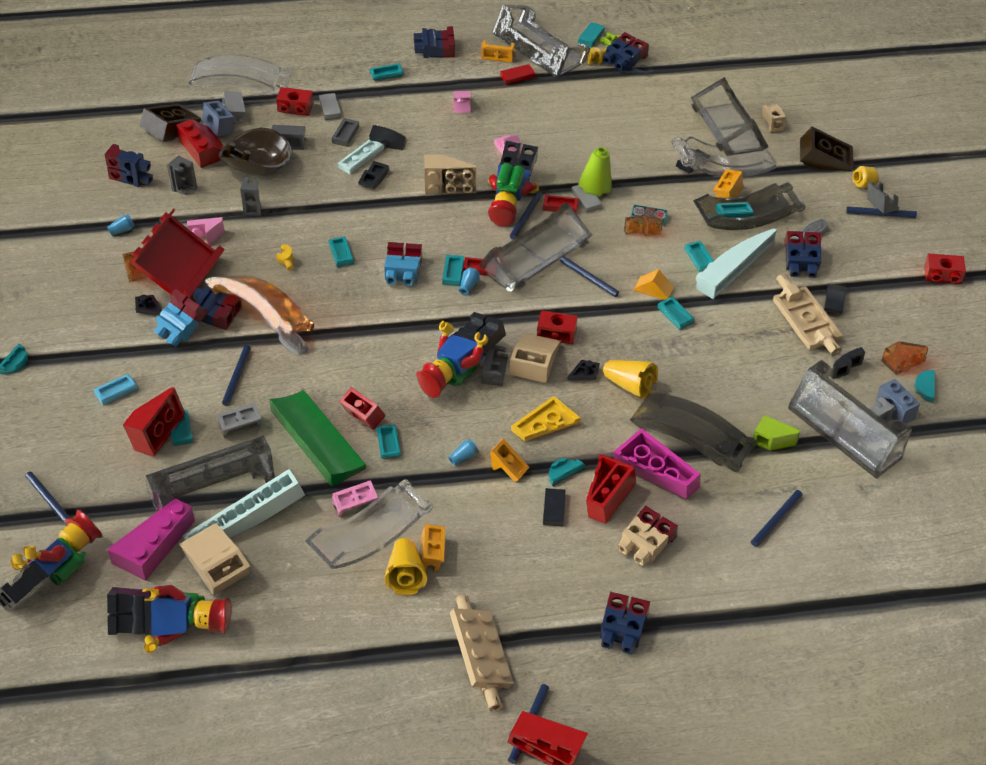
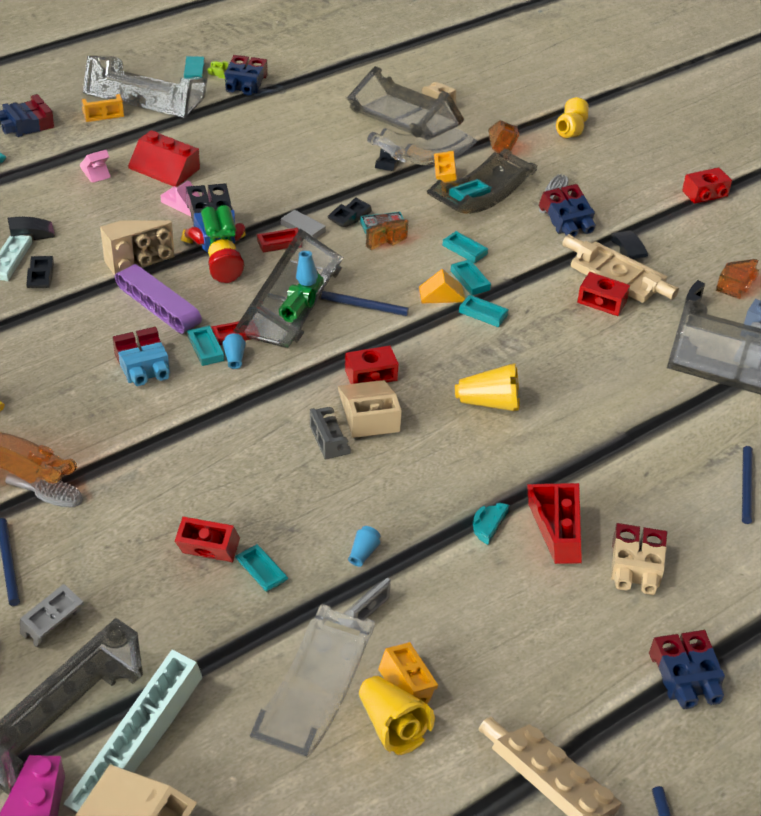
camera: 30 degrees left, 5 degrees down
(317, 437) = (166, 598): green arch -> none
(341, 252) = (53, 368): teal tile -> none
(353, 497) = (269, 654): bright pink hinge -> none
(441, 223) = (158, 298): none -> medium lavender beam
(441, 491) = (370, 601): none -> light grey slope
(460, 353) = (286, 430): piece -> none
(505, 457) = (426, 532): light orange slope -> none
(515, 110) = (164, 159): none -> red slope
(517, 74) = (140, 125): red tile -> none
(525, 215) = (249, 264): dark blue bar -> none
(540, 255) = (299, 298): none -> green piece
(545, 419) = (430, 472): yellow wing -> none
(550, 236) = (306, 269): none -> dark azure cone
(554, 507) = (510, 567): black tile -> none
(584, 371) = (434, 403): black piece -> none
(596, 55) = (215, 86): yellow piece -> none
(597, 173) = (305, 193): lime cone -> none
(625, 200) = (350, 213): none -> black slope
(658, 464) = (596, 471): dark pink wedge -> none
(685, 282) = (470, 277): none -> teal tile
(694, 426) = (595, 417): clear smoke windscreen -> none
(733, 263) = (504, 245): light aqua slope -> none
(774, 434) = (679, 397): lime slope -> none
(779, 331) = (603, 293): none -> red brick
(797, 171) = (503, 136): none -> clear orange slope
(825, 151) = (513, 111): dark brown slope -> none
(875, 211) = (605, 153): dark blue bar -> none
(881, 199) = (601, 139): dark grey hinge -> none
(883, 164) = (578, 106): none -> yellow head

